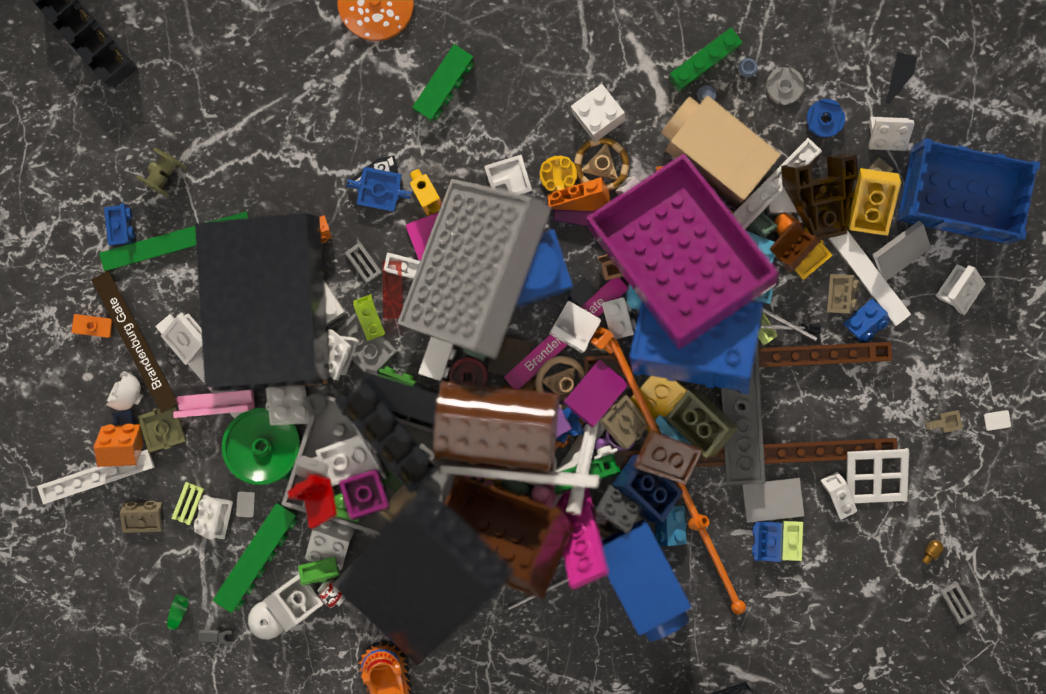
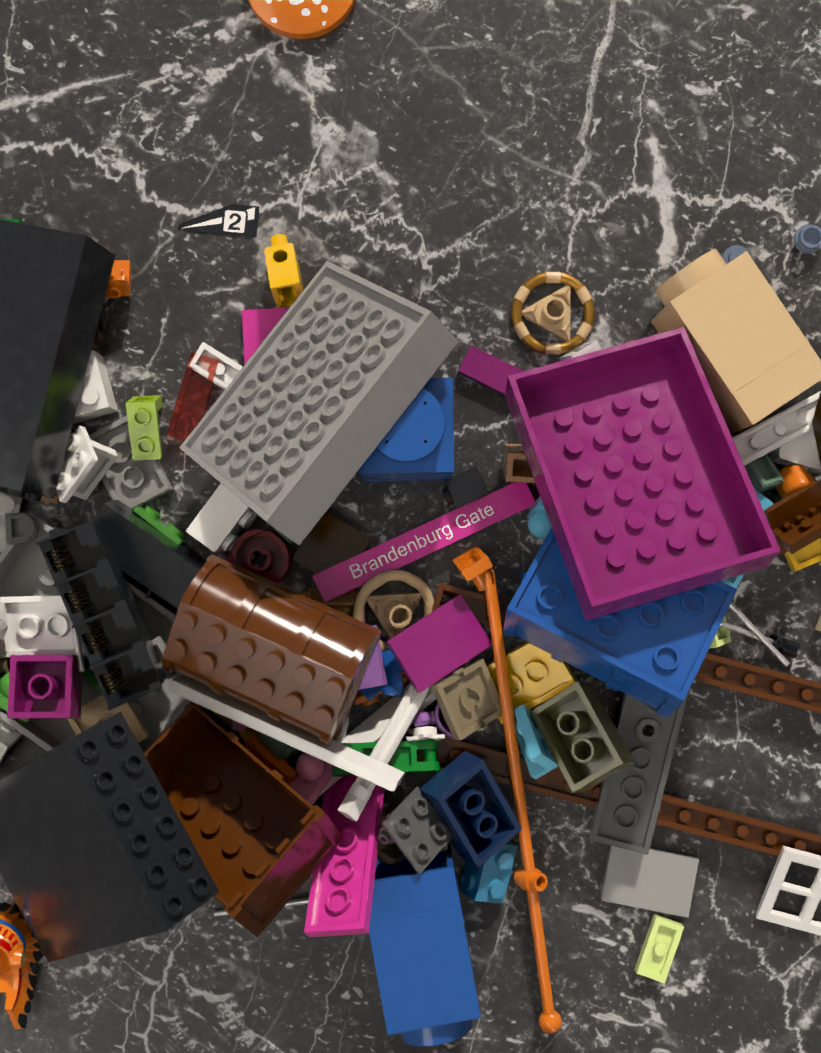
camera: 20 degrees right, 0 degrees up
(372, 275) = (172, 369): light grey tile -> none
(379, 189) = (220, 247): blue plate -> none
(443, 83) = (361, 124): green brick -> none
(509, 175) = (415, 281): white plate -> none
(558, 173) = (485, 306): yellow dish -> none
(575, 327) = (440, 535): white bracket -> none
(581, 197) = (507, 348): orange slope -> none
(598, 113) = (572, 234): white brick -> none
(618, 318) = (507, 542): white bracket -> none
(668, 457) = (516, 775): reddish brown tile -> none
(705, 60) = (751, 207): green brick -> none
(768, 541) = (624, 939): blue bracket -> none
(840, 495) = (752, 902): white bracket -> none

